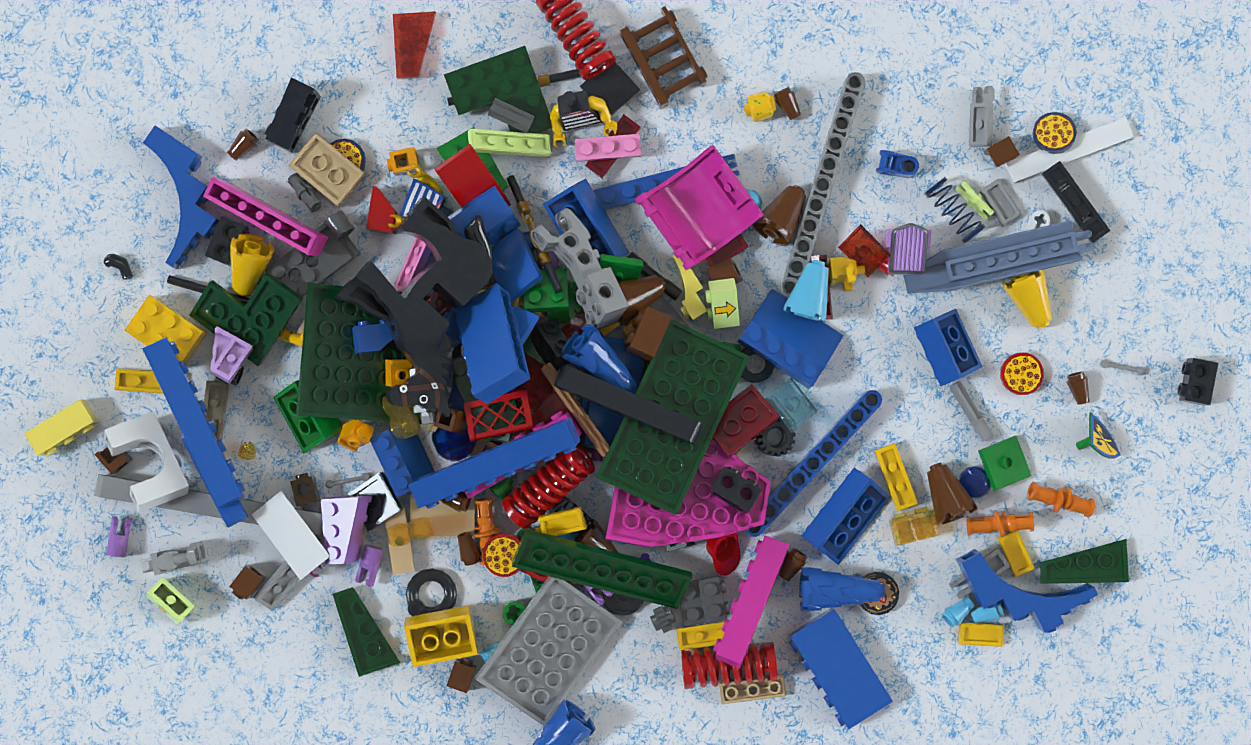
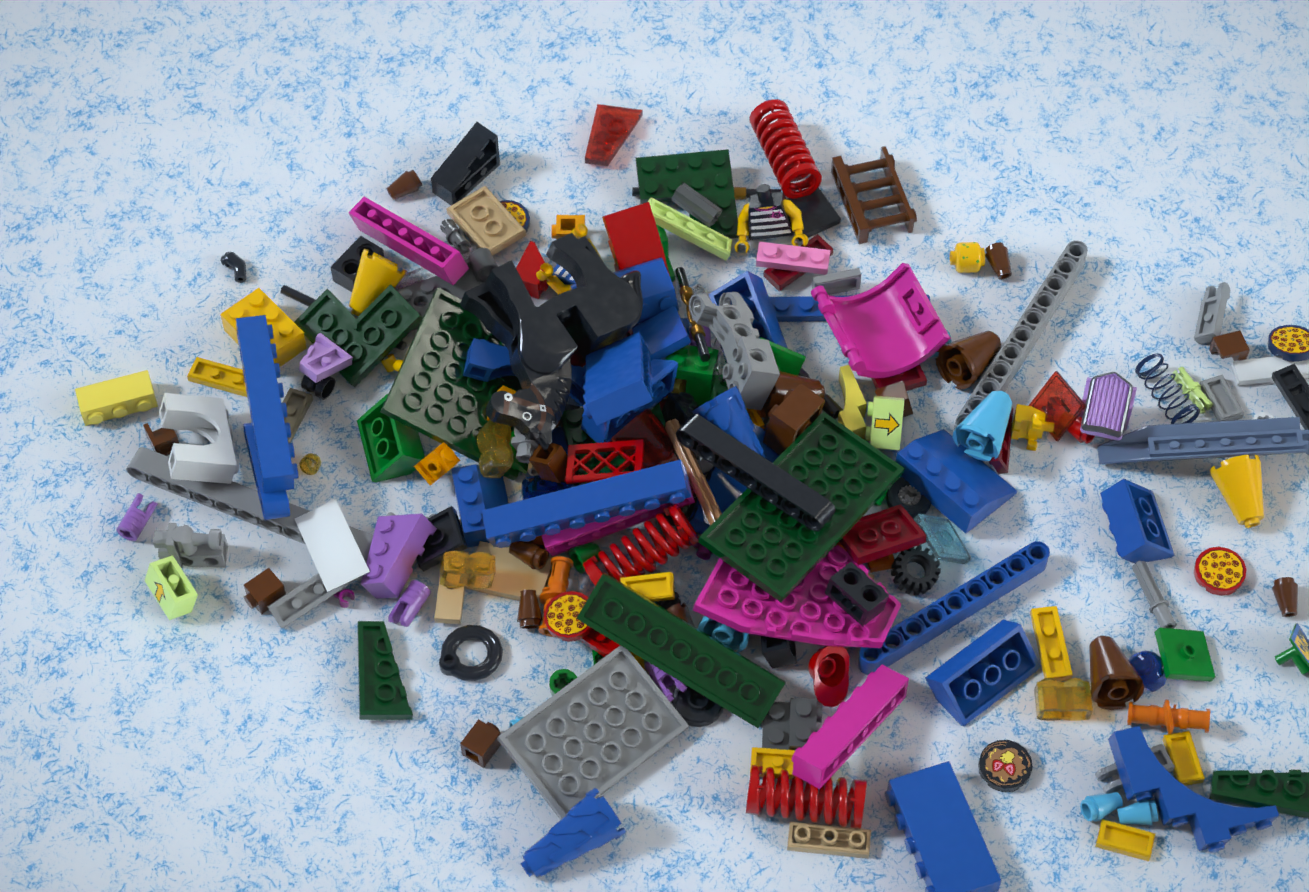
camera: 15 degrees right, 30 degrees down
(193, 219) = (331, 236): blue arch -> none
(312, 496) = (362, 521): dark brown brick -> none
(441, 636) = (470, 688): yellow brick -> none
(651, 162) = (839, 281): none -> light grey tile
(663, 619) = (738, 733): dark grey gear -> none
(792, 564) = (908, 709): reddish brown cone -> none
(833, 589) = (954, 740): blue cone -> none
(895, 164) = (1109, 338): blue piece -> none
(1061, 499) = (1247, 706): orange piece -> none

